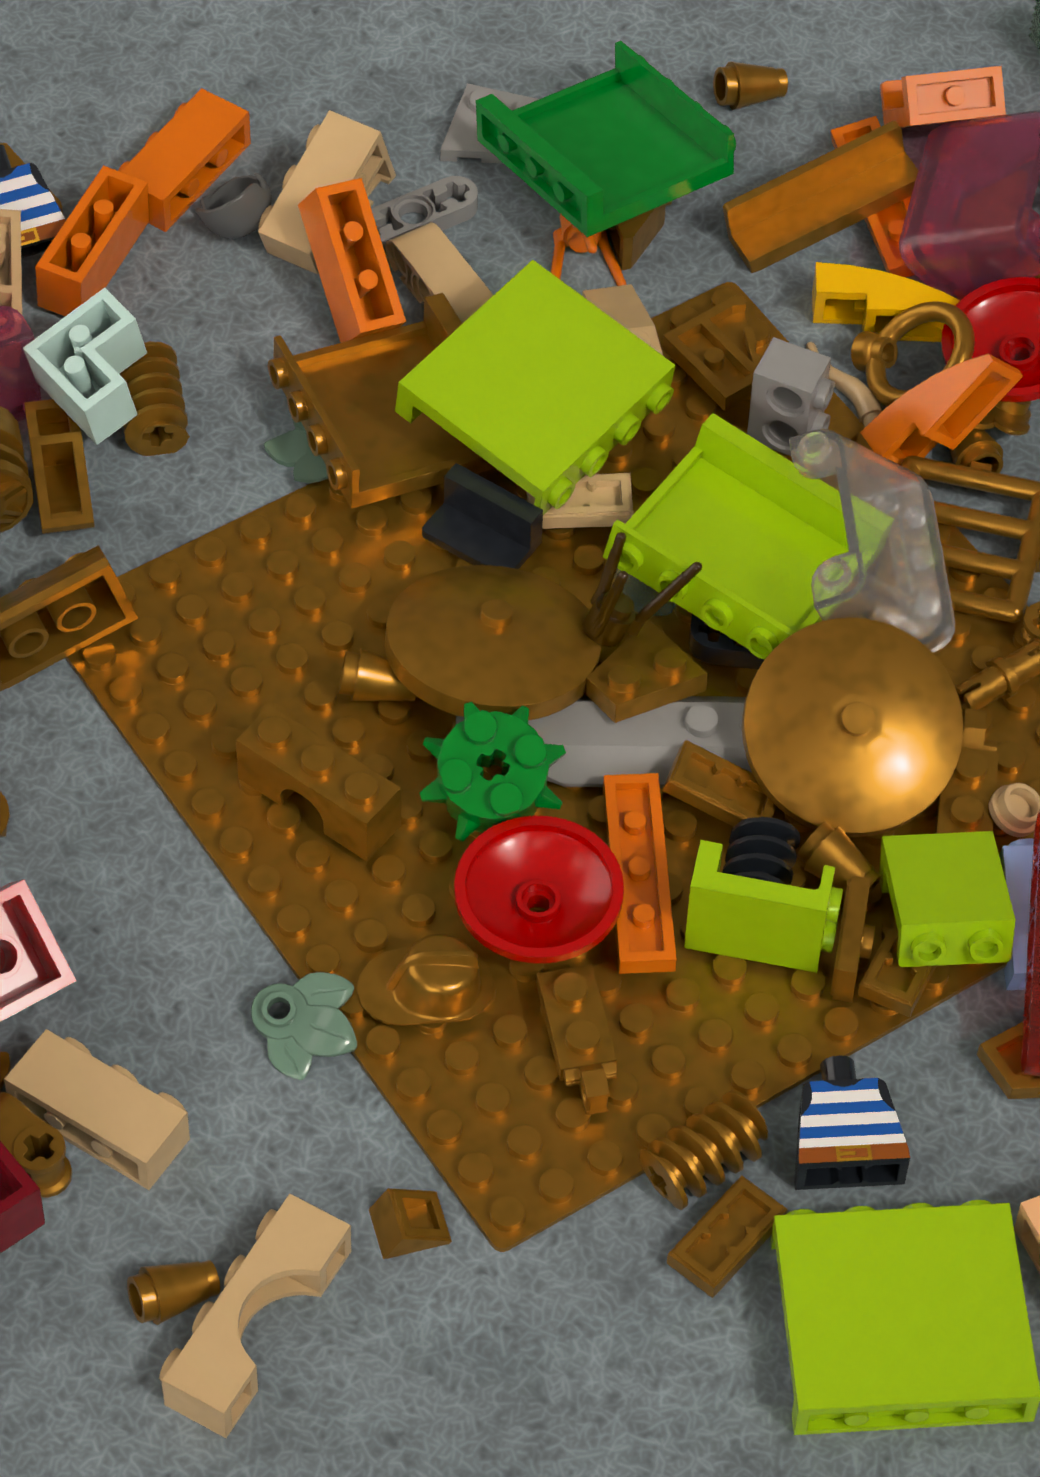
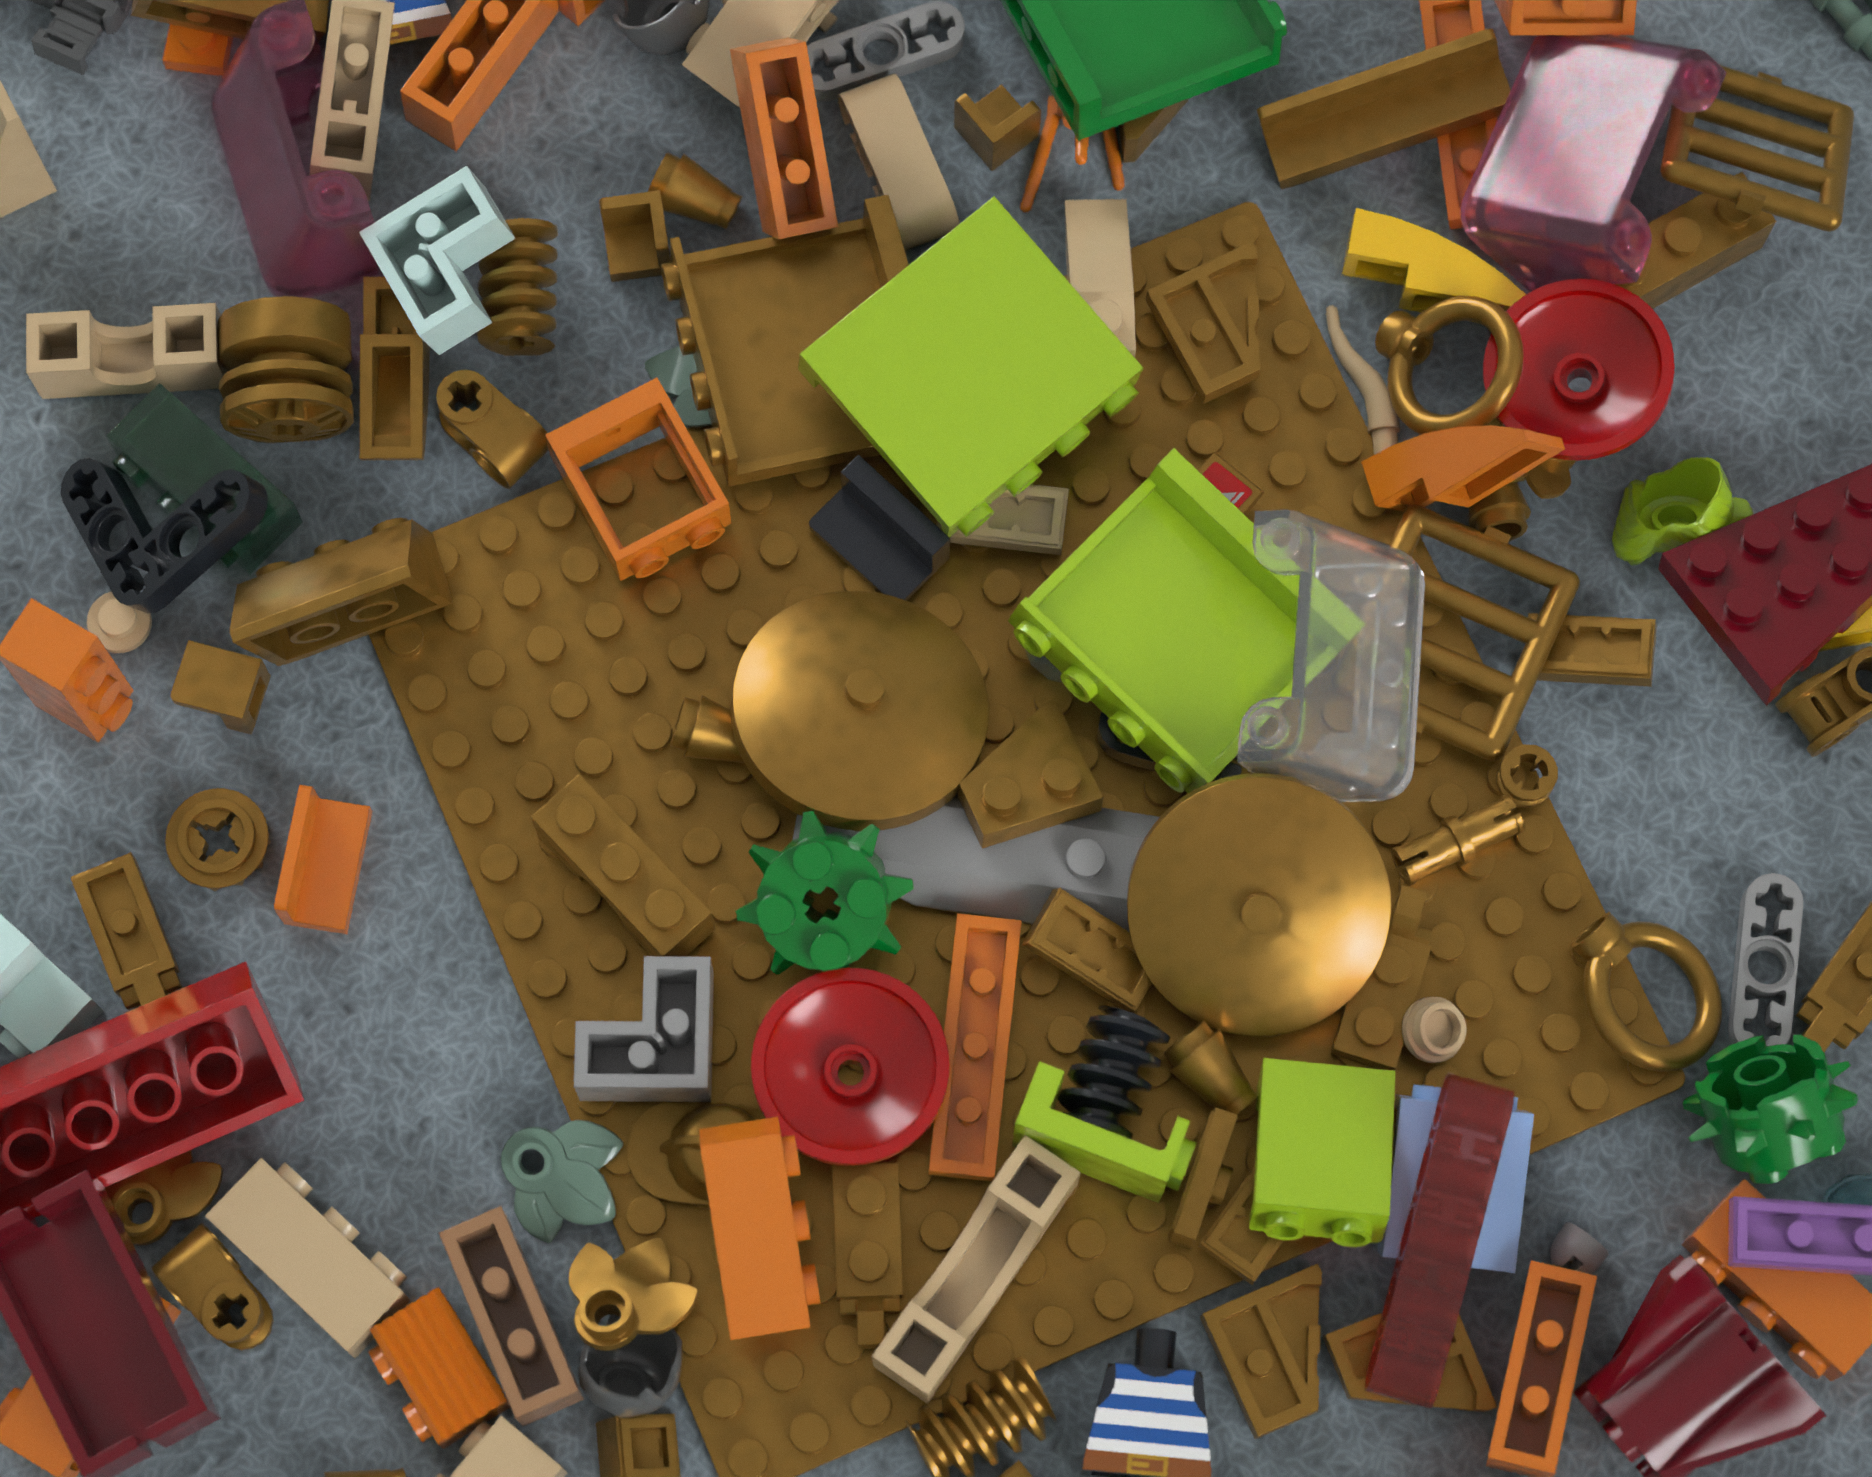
camera: 10 degrees right, 20 degrees up
(58, 822) = (322, 862): none -> orange panel
(147, 498) = (496, 434): none -> pearl gold piece
(224, 1176) = (438, 1369): none -> orange brick
(241, 353) = (635, 235): none -> pearl gold panel
(258, 472) = (611, 428): none -> orange window
(275, 317) = (694, 191): none -> pearl gold cone
(284, 1120) = (511, 1316): none -> medium nougat brick
(374, 903) = (662, 1055): none -> light grey brick
(379, 1093) = (631, 1287): none -> pearl gold plate
(394, 1148) = (633, 1377): none -> dark grey hair
(485, 1011) = (758, 1227): none -> orange brick
(513, 249) = (996, 125): none -> pearl gold panel
(613, 610) = (1008, 699): dark brown plant -> none
(661, 1059) = (976, 1269): none -> tan arch
(789, 394) = (1279, 419): light grey brick -> none
(935, 1068) = (1271, 1349): none -> pearl gold wing

